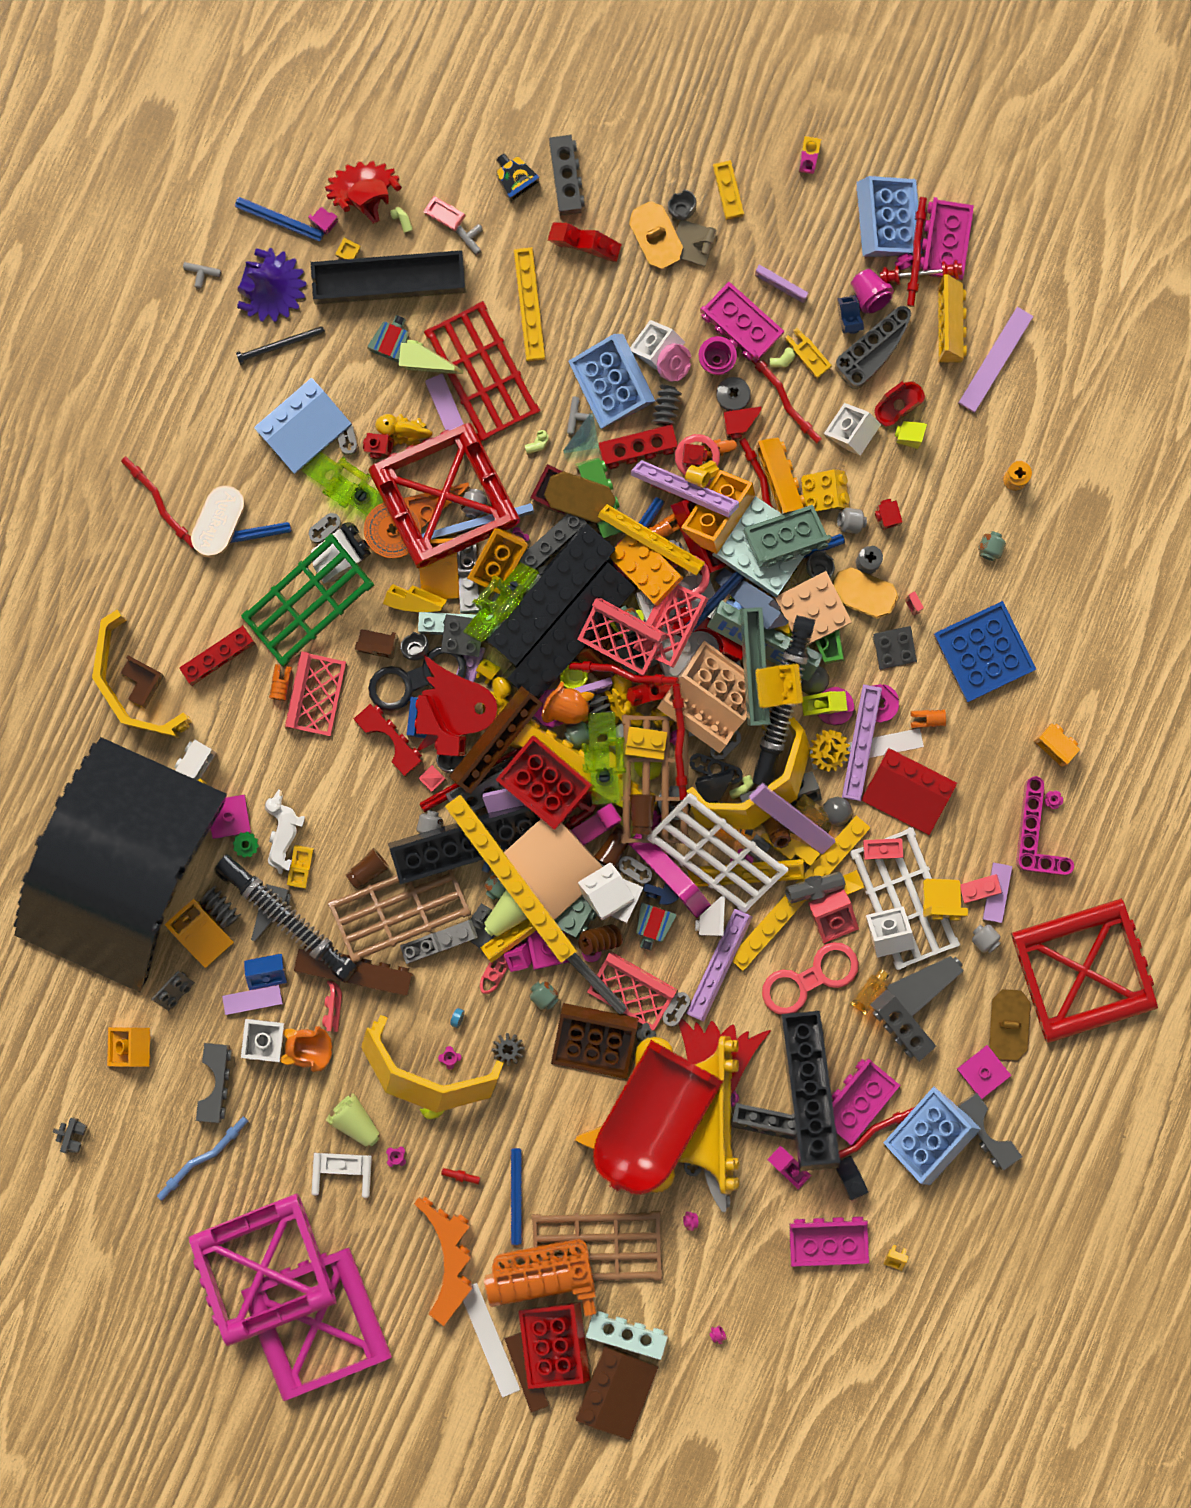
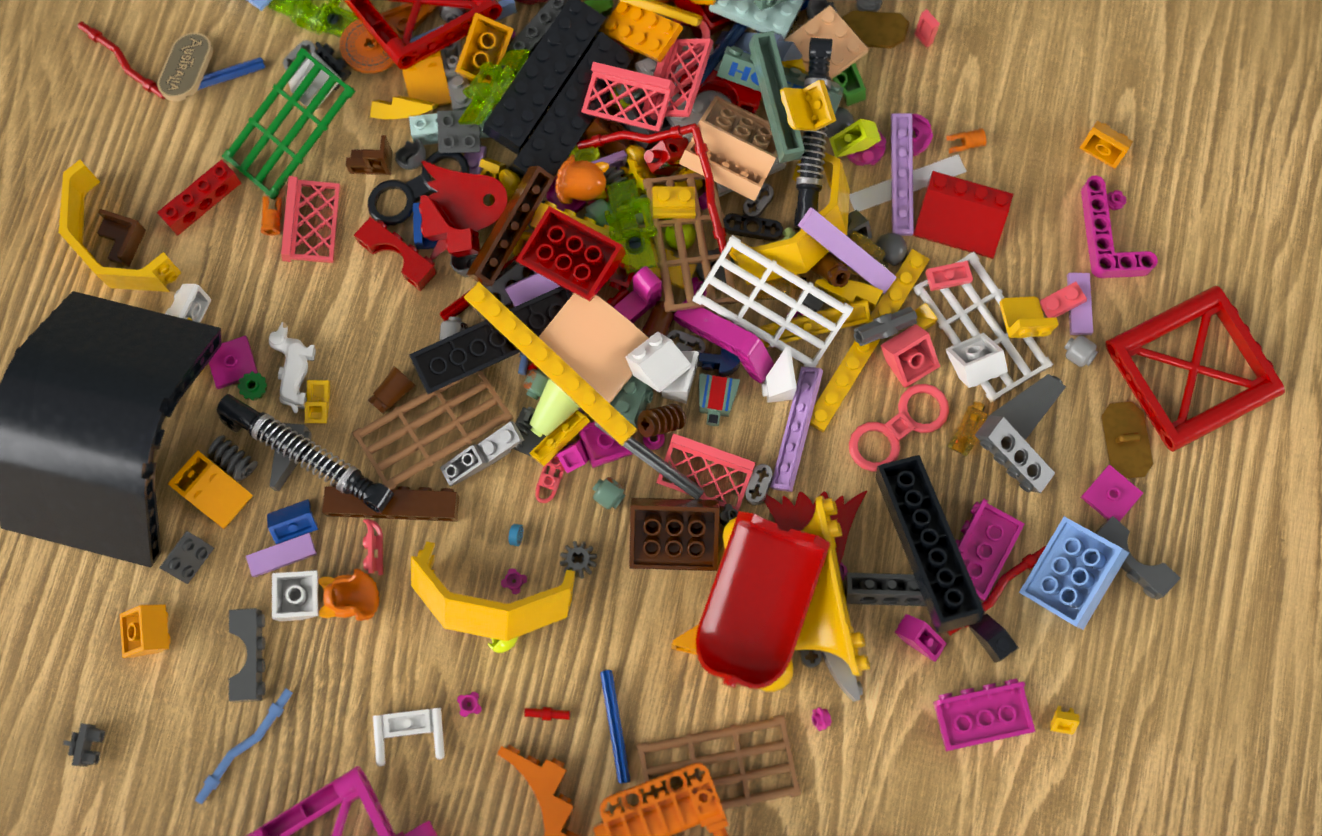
camera: 10 degrees left, 10 degrees down
(354, 1121) = (415, 671): yellowish green cone -> none
(431, 778) = (449, 286): coral tile -> none
(642, 812) = (683, 271): reddish brown plant -> none
(714, 785) = (757, 236): black slope -> none
(826, 748) = (869, 186): yellow gear -> none
(894, 647) = (915, 77): dark grey hinge -> none
(984, 651) = (1008, 67): blue plate -> none

